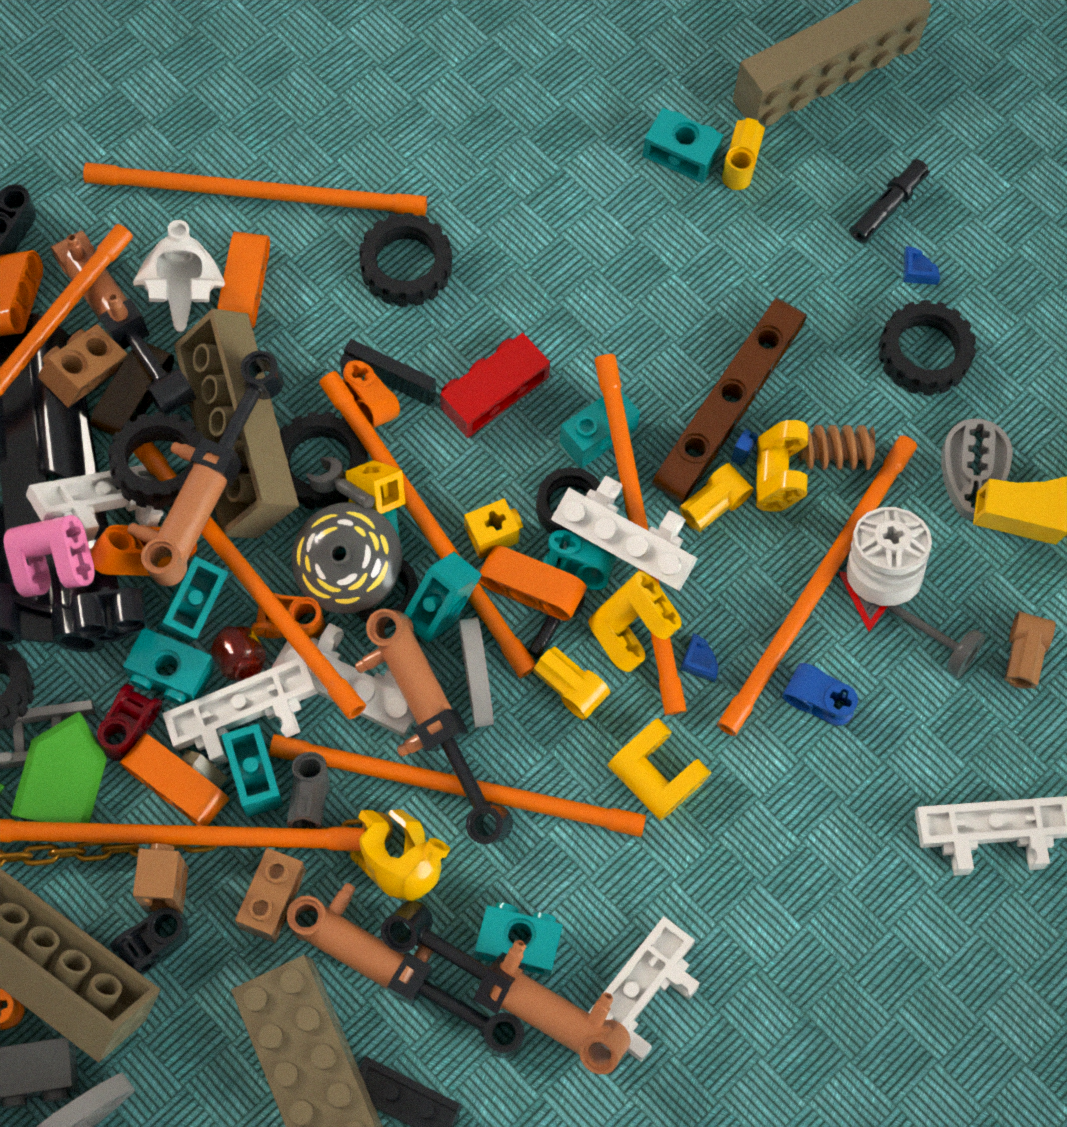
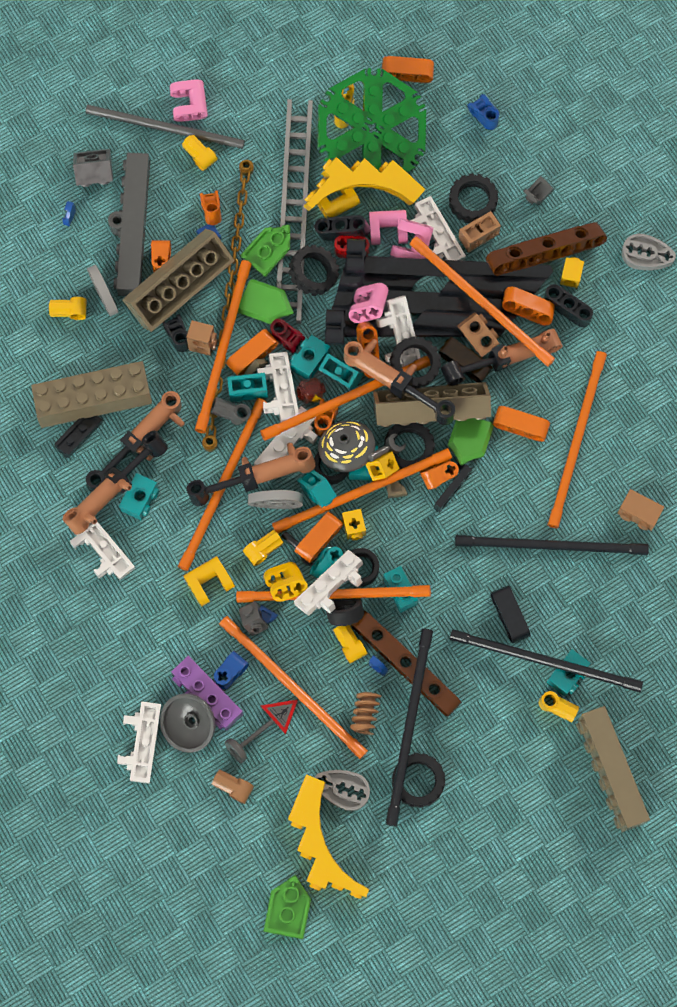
camera: 105 degrees right, 5 degrees up
(179, 273) = (528, 392): white piece -> none
(270, 895) = (186, 387): medium nougat brick -> none
(301, 354) = (470, 439): none -> bright green tile
(372, 75) = (640, 510): none -> medium nougat piece
(401, 228) = (534, 495): black tyre -> none
(410, 466) = (396, 490): none -> dark tan tile
(410, 874) = (179, 450): yellow piece -> none
(480, 329) = (632, 548): none -> black piece
(494, 384) = (436, 540): red brick -> none
(601, 247) = (510, 614): none -> black beam
(661, 308) = (625, 682): none -> black piece
(683, 495) = (346, 612): none -> black tyre
(701, 360) = (394, 808): none -> black piece
(712, 674) = (252, 618): none -> dark grey bracket
(775, 483) = (358, 676): yellow connector -> none
(873, 729) = (199, 683): none -> medium lavender brick
(888, 556) = (286, 727): white wheel -> none
(898, 190) = (515, 784): black pin -> none
(919, 268) = (471, 791): blue tile -> none
(957, 745) = (178, 724): none -> dark grey dish

